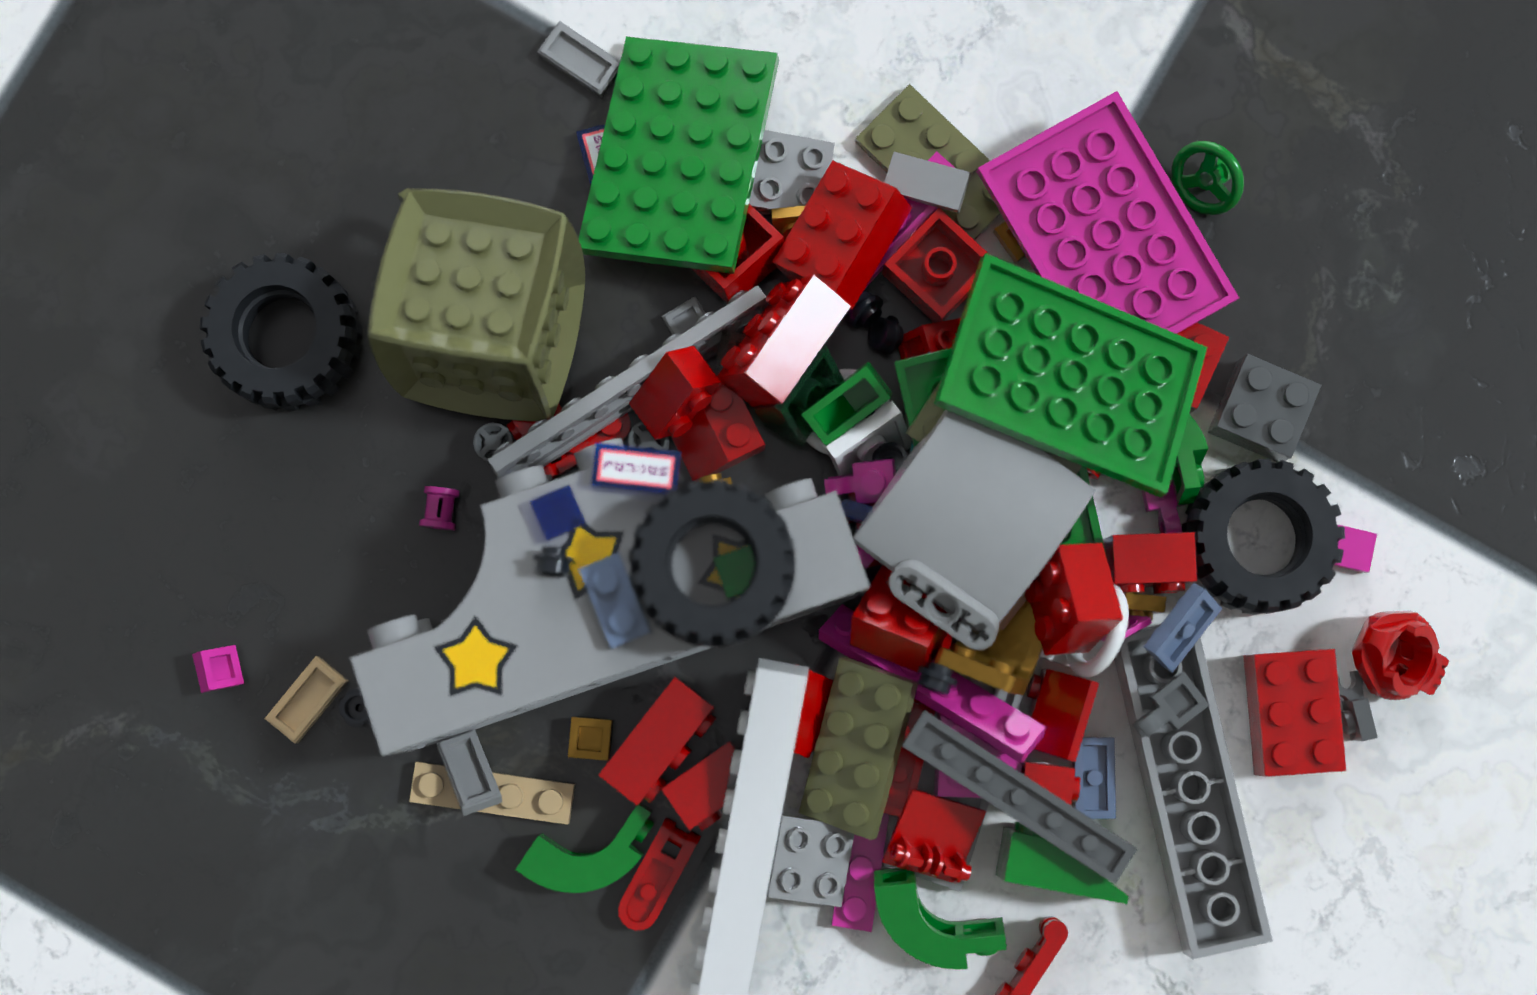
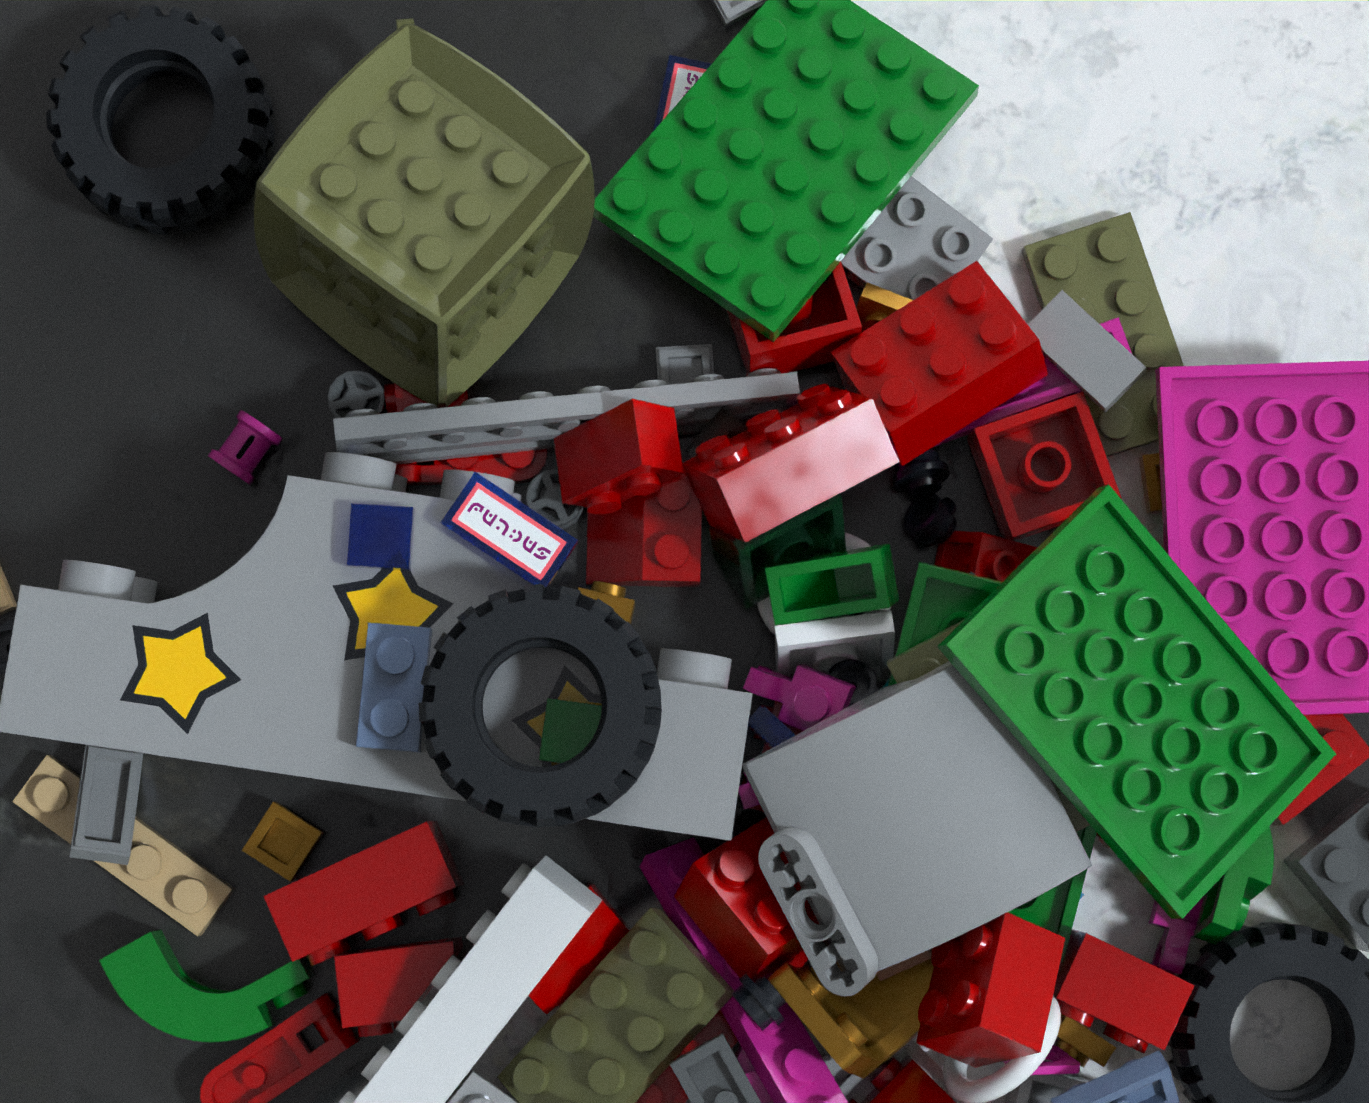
camera: 25 degrees right, 0 degrees up
(553, 562) = (341, 597): black plate -> none

